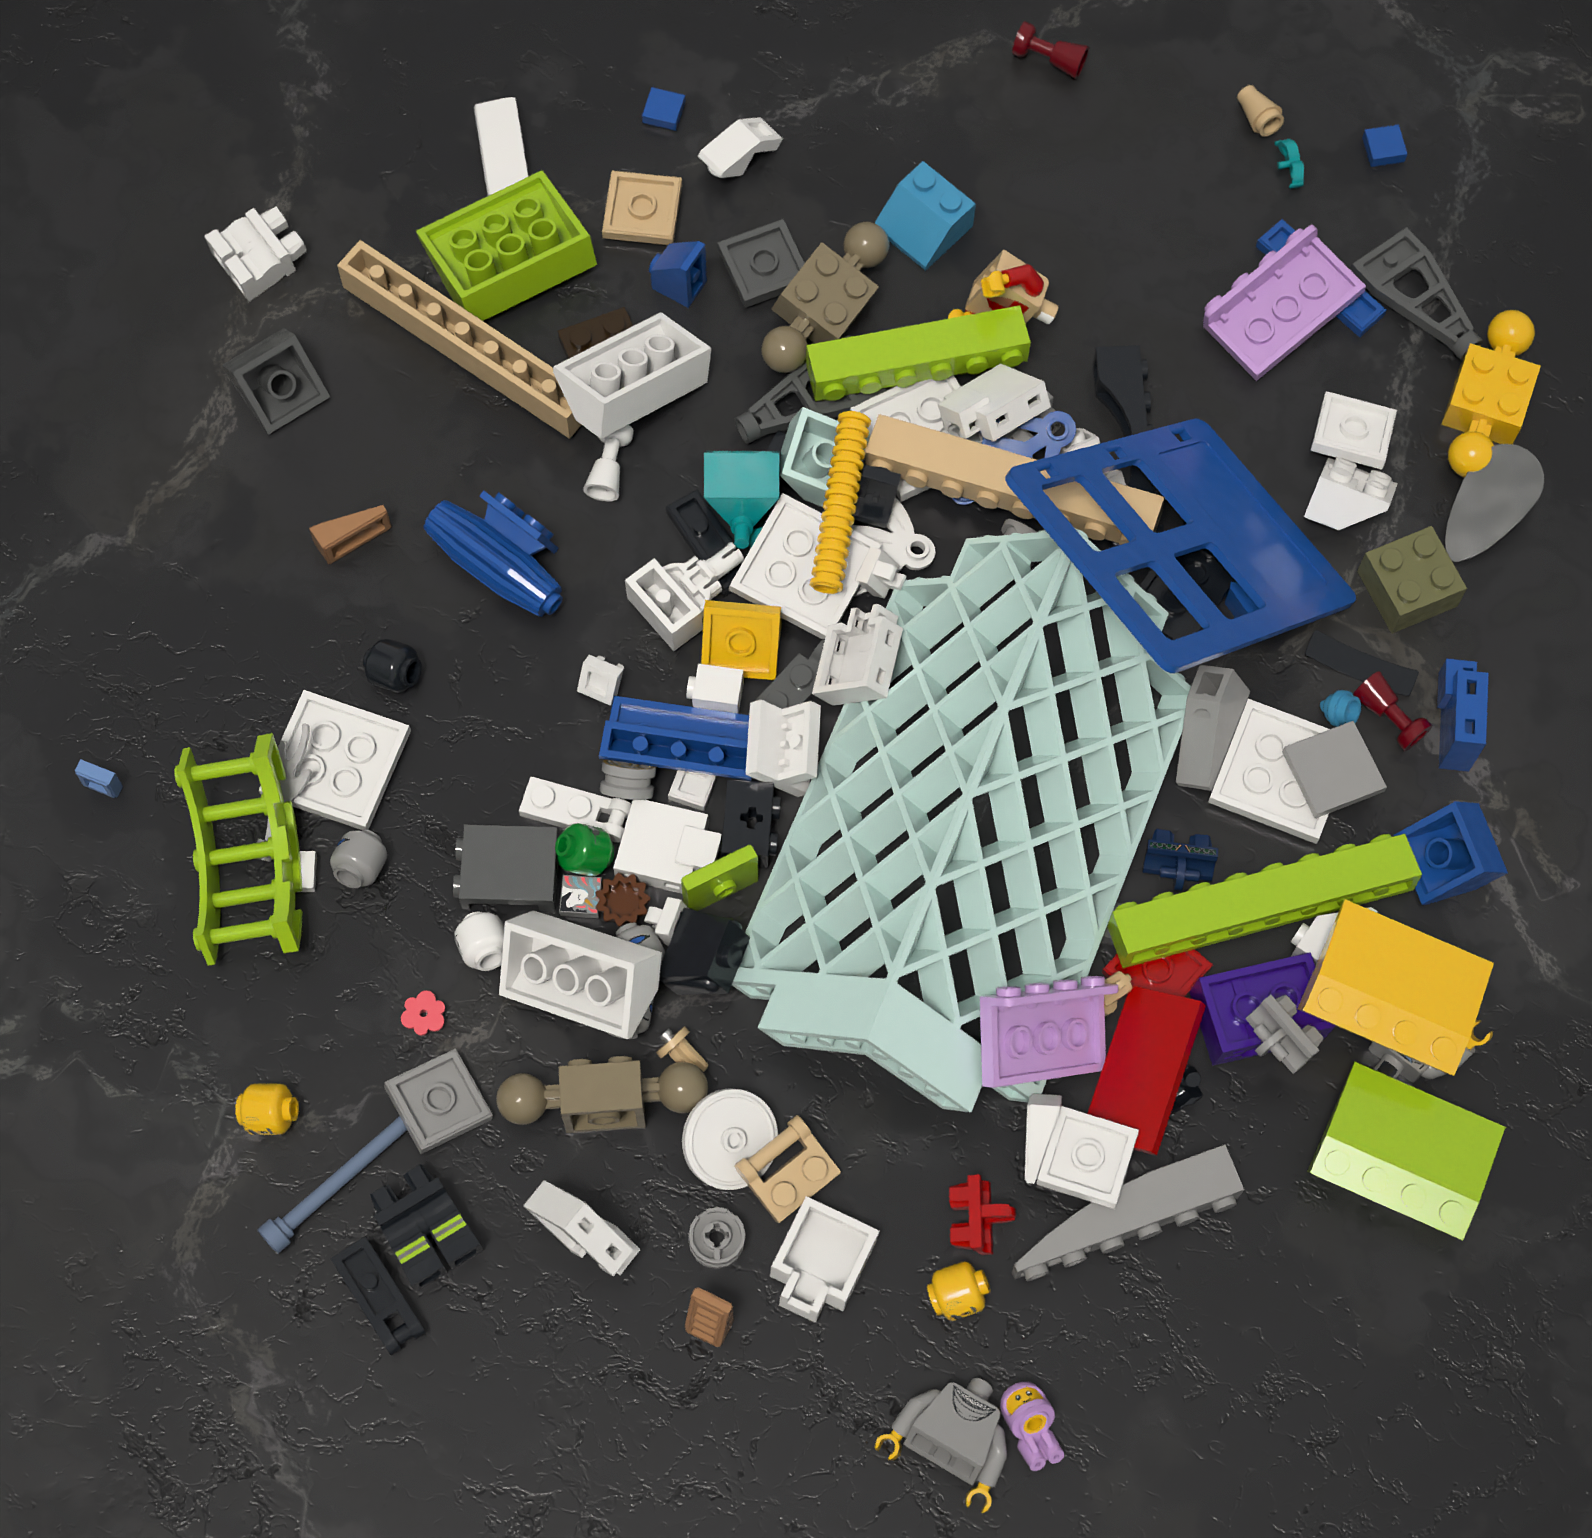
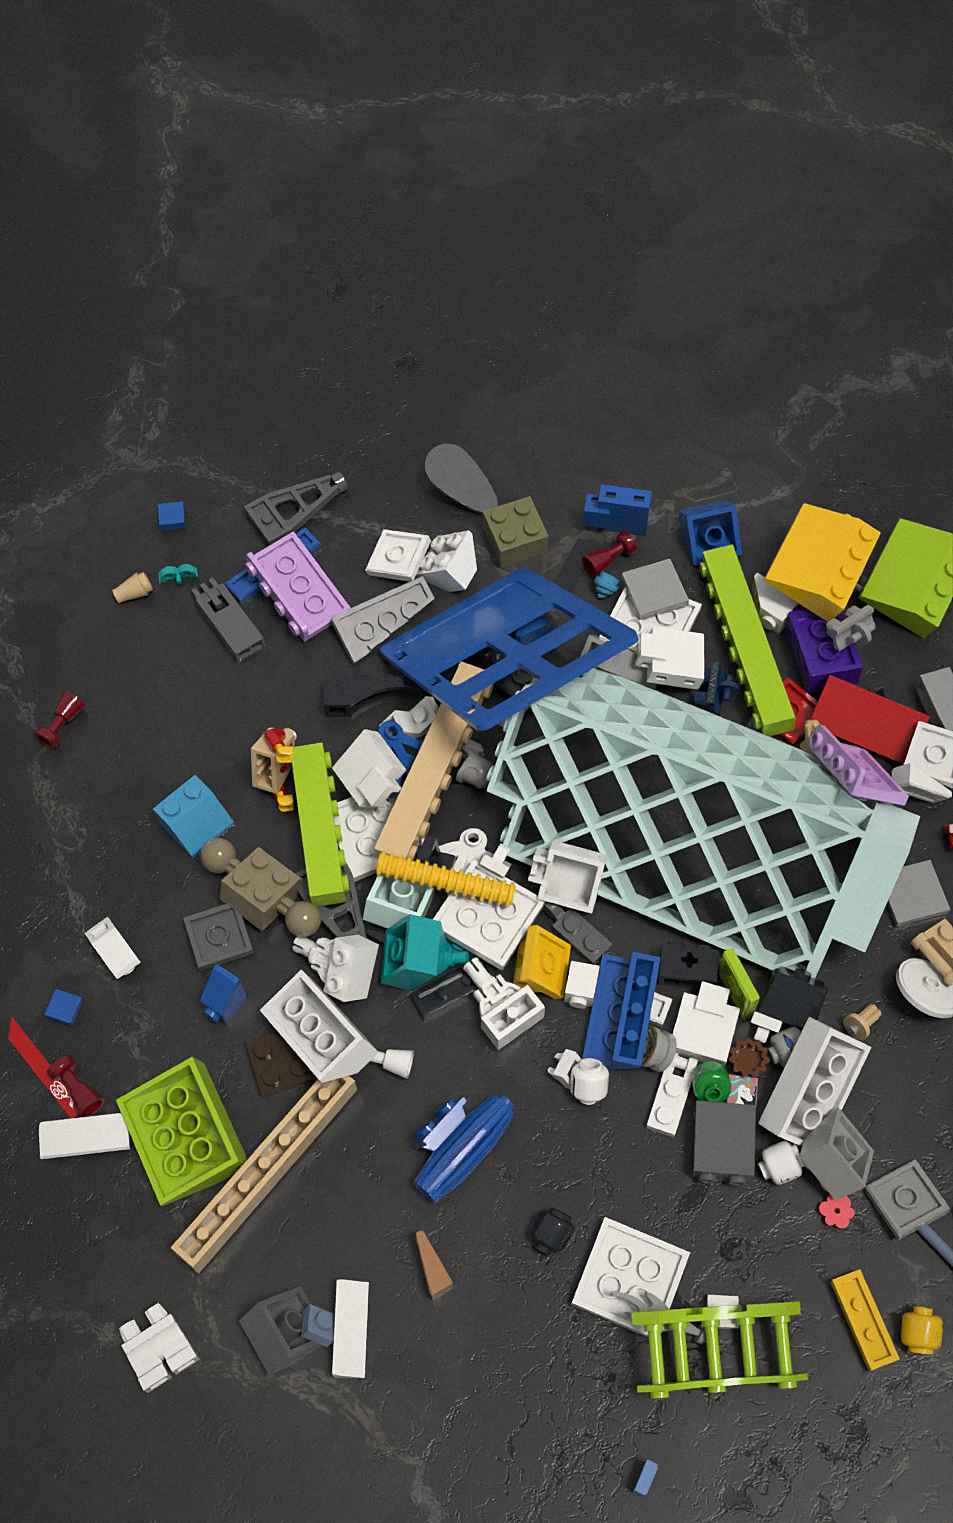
camera: 85 degrees left, 5 degrees down
(277, 450) = (350, 1329): none -> white slope
(278, 412) = (318, 1325): none -> sand blue plate
(282, 1041) = (864, 1320): none -> yellow plate
(358, 858) = (715, 1258): light grey head -> none
(490, 1005) = (837, 1155): none -> light grey slope
(551, 139) = (83, 1096): none -> dark red piece
(582, 700) = (589, 1081): none -> white head
(586, 100) = (40, 1067): none -> red sticker
(601, 1094) = (905, 1074): dark tan brick -> none
(642, 208) = (156, 1026): tan plate -> none
(723, 402) = (342, 964): none -> white brick
(783, 745) = (634, 930): white bracket -> none
(879, 1132) = (917, 895): none -> light grey tile
(1215, 787) = (672, 657): none -> white piece
(1221, 233) = (229, 623): none -> dark grey hinge
(1244, 409) = (375, 620): none -> light grey wing
(1491, 392) = (380, 471): yellow brick -> none

